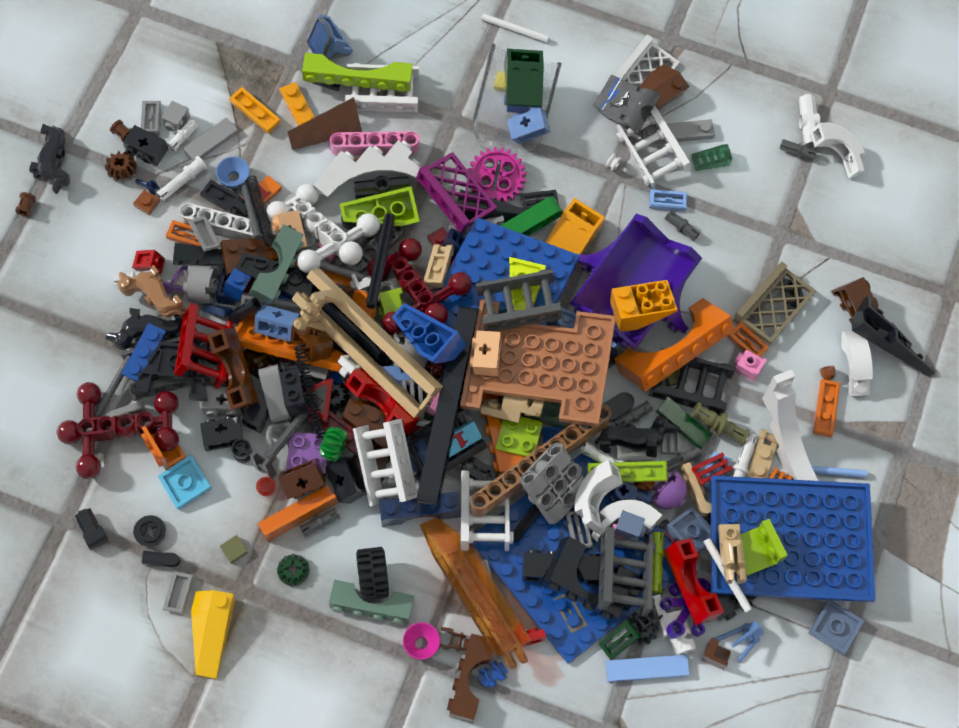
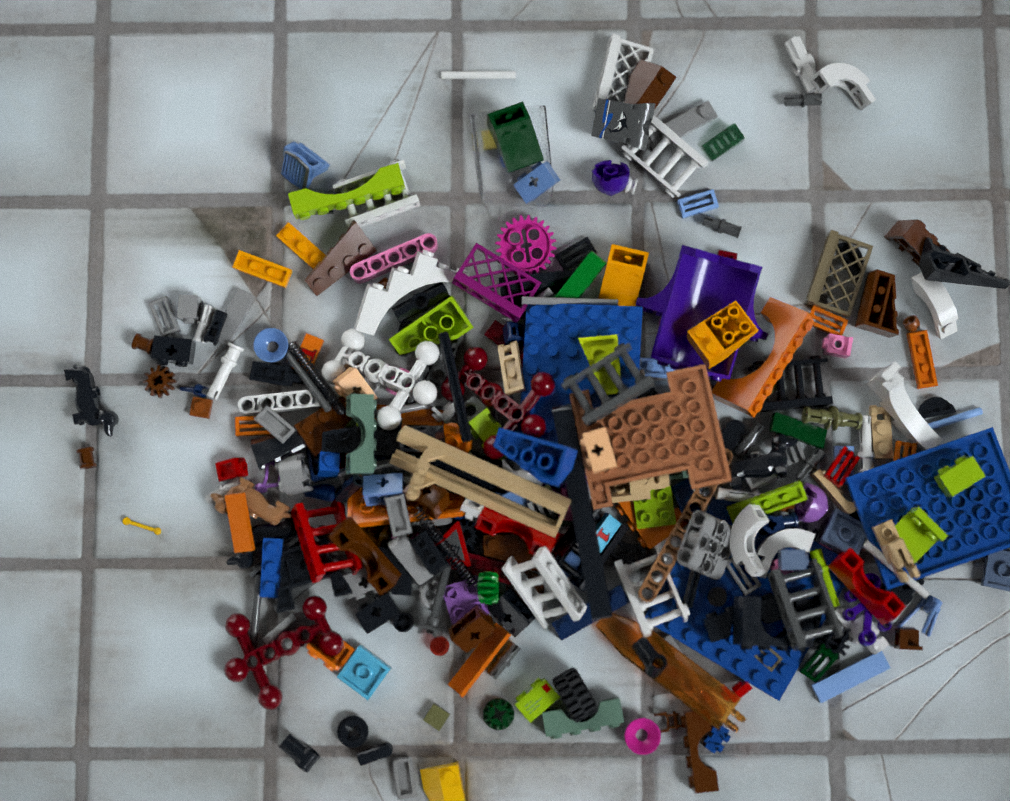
camera: 15 degrees left, 15 degrees up
(34, 271) = (126, 521): none -> yellow hinge
(133, 301) = (239, 522): none -> orange tile
(193, 138) = (216, 324): none -> black bar
(279, 345) = (398, 515): none -> light grey tile
(335, 567) = (536, 699): none -> lime brick
(459, 568) = (648, 657): none -> black piece
(491, 220) = (553, 301): none -> light grey piece
(546, 540) = (717, 596): none -> clear smoke plate
(596, 148) = (610, 177): none -> dark purple cylinder
(801, 343) = (877, 305): none -> reddish brown wedge
(820, 511) = (959, 476): none -> lime brick
(824, 455) = (935, 407): none -> black tile

